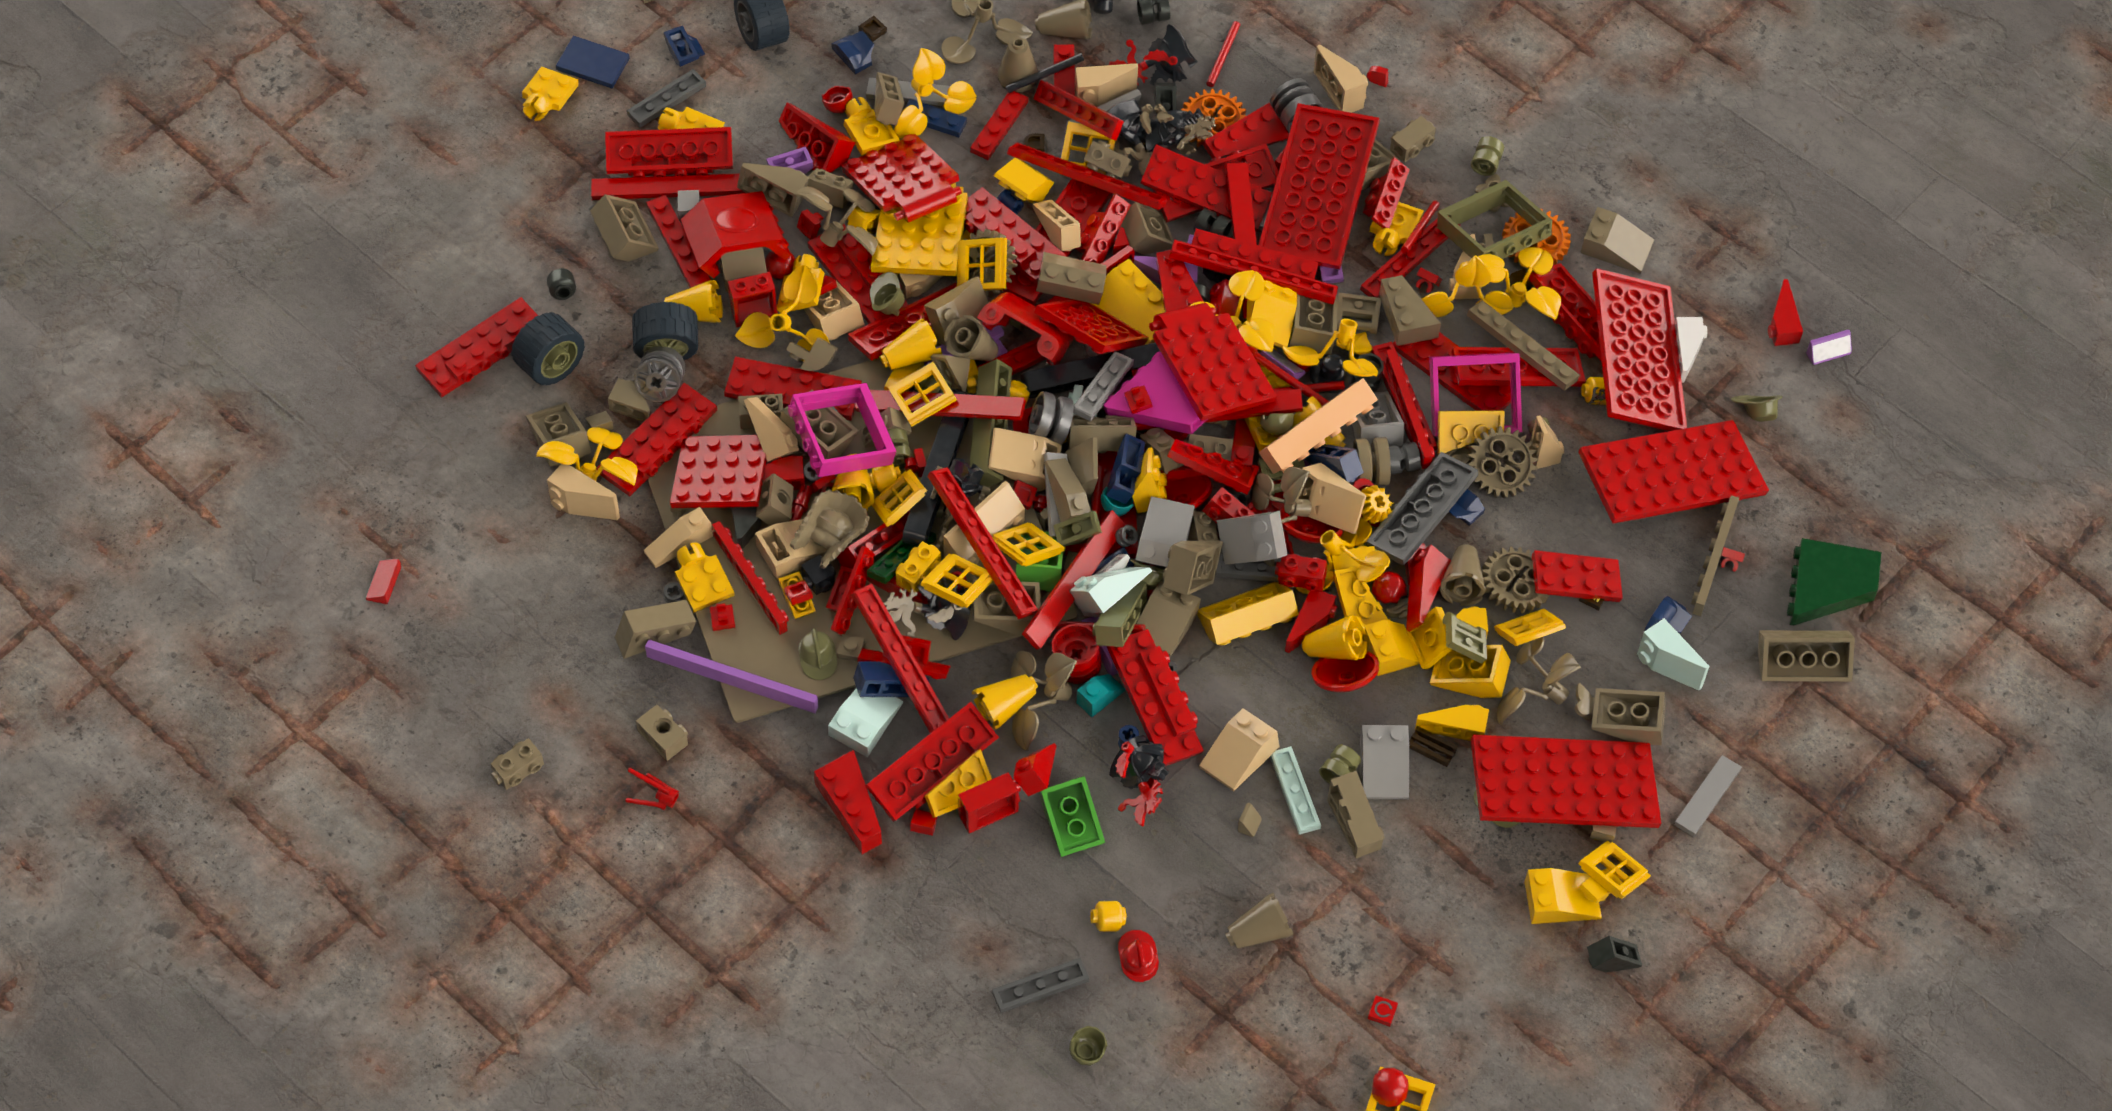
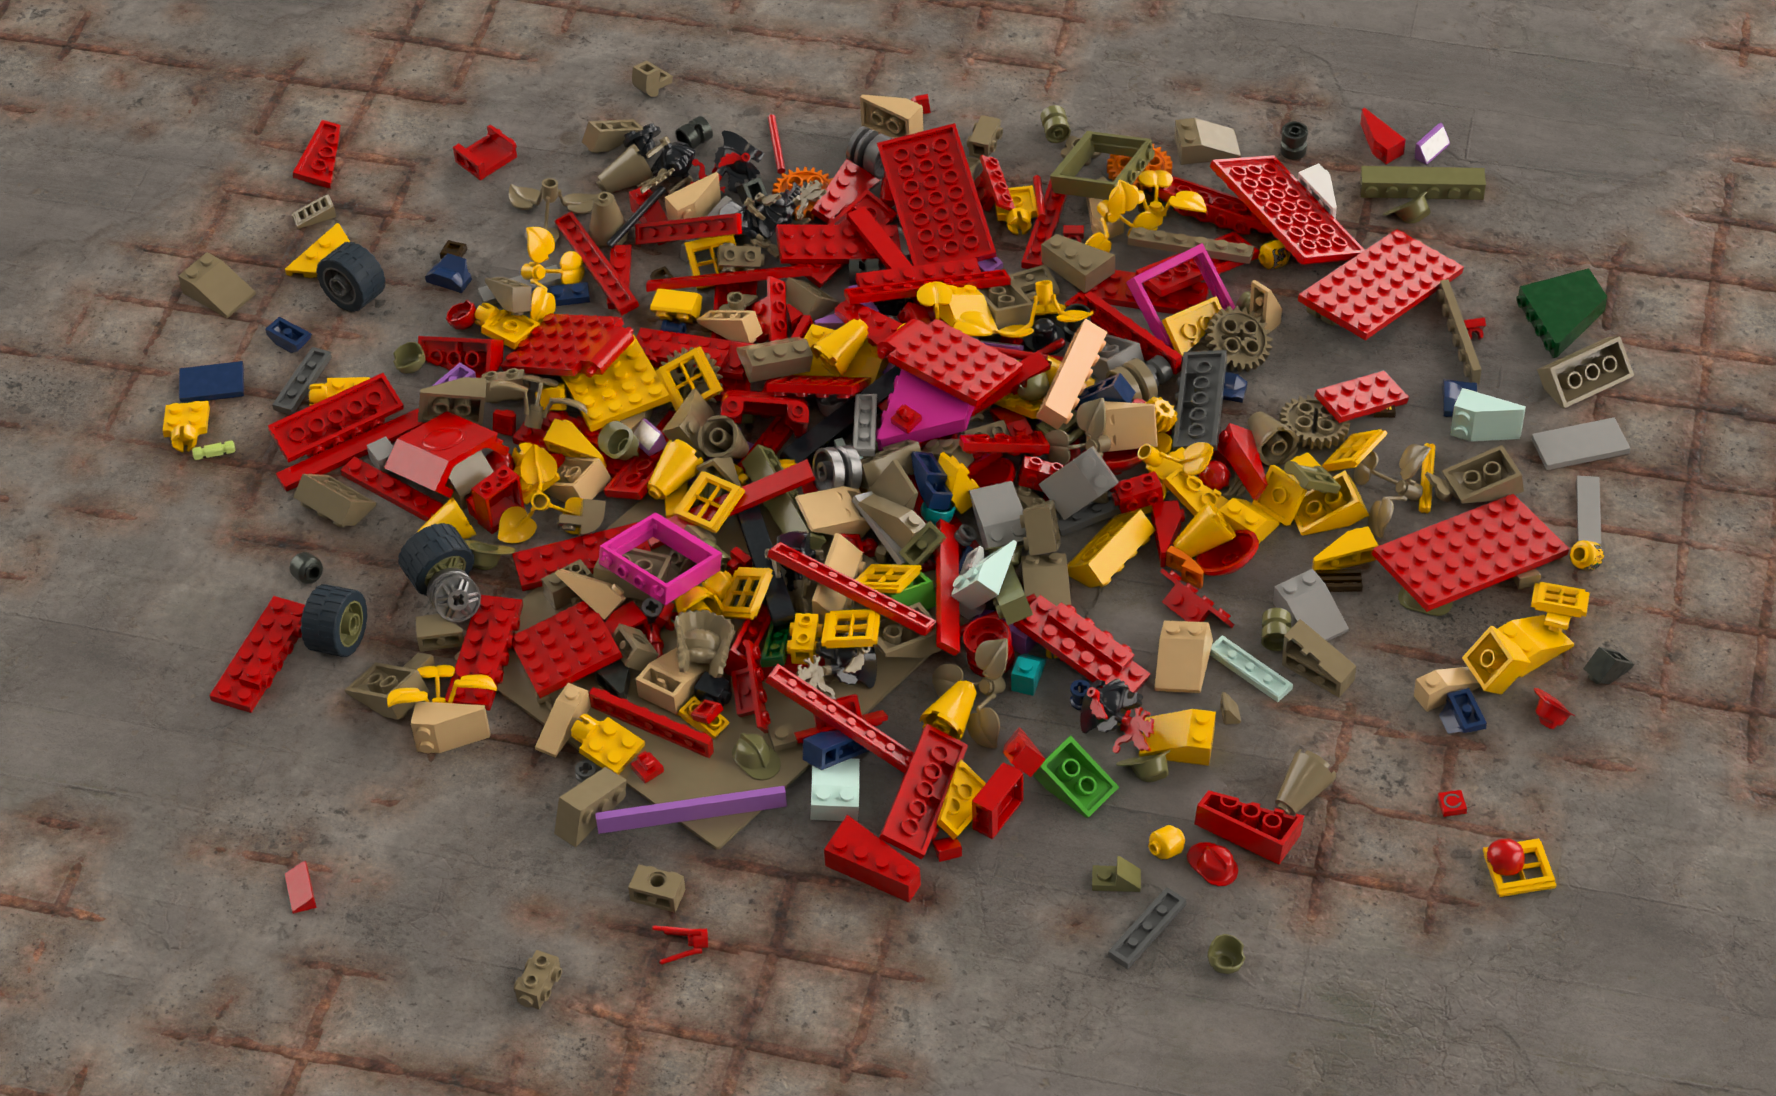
camera: 25 degrees left, 10 degrees down
(555, 130) = (213, 450): none -> yellowish green axle
(715, 345) = (487, 555): none -> olive piece
(767, 120) = (409, 358): none -> olive hair
(848, 273) = (567, 439): none -> yellow slope
(914, 303) = (649, 437): none -> slope
(984, 103) = (596, 263): none -> red tile
(1047, 925) = (1123, 877): none -> olive slope
(1079, 203) = (739, 301): none -> dark tan animal
(1112, 32) = (674, 162): none -> black helmet
(1134, 296) = (840, 346): none -> yellow cone
(1139, 838) = (1149, 767): none -> olive piece
(1188, 824) = (1185, 734): none -> yellow slope
(1188, 939) = (1249, 825): none -> red wedge
(1283, 701) = (1188, 605): none -> red bracket
(1303, 664) = (1189, 569): none -> orange slope
(1449, 931) = (1462, 713): none -> dark blue slope
(1456, 897) = (1433, 687): none -> tan slope
(1509, 900) = (1495, 661): none -> yellow slope
(1533, 968) = (1550, 710): none -> red piece
(1587, 681) = (1427, 466): none -> yellow axle
(1671, 839) = (1587, 555): none -> yellow head
(1698, 280) = (1294, 140): none -> pearl dark grey wheel
(1750, 724) = (1580, 443): none -> light grey tile
(1792, 383) = (1413, 181): none -> olive brick

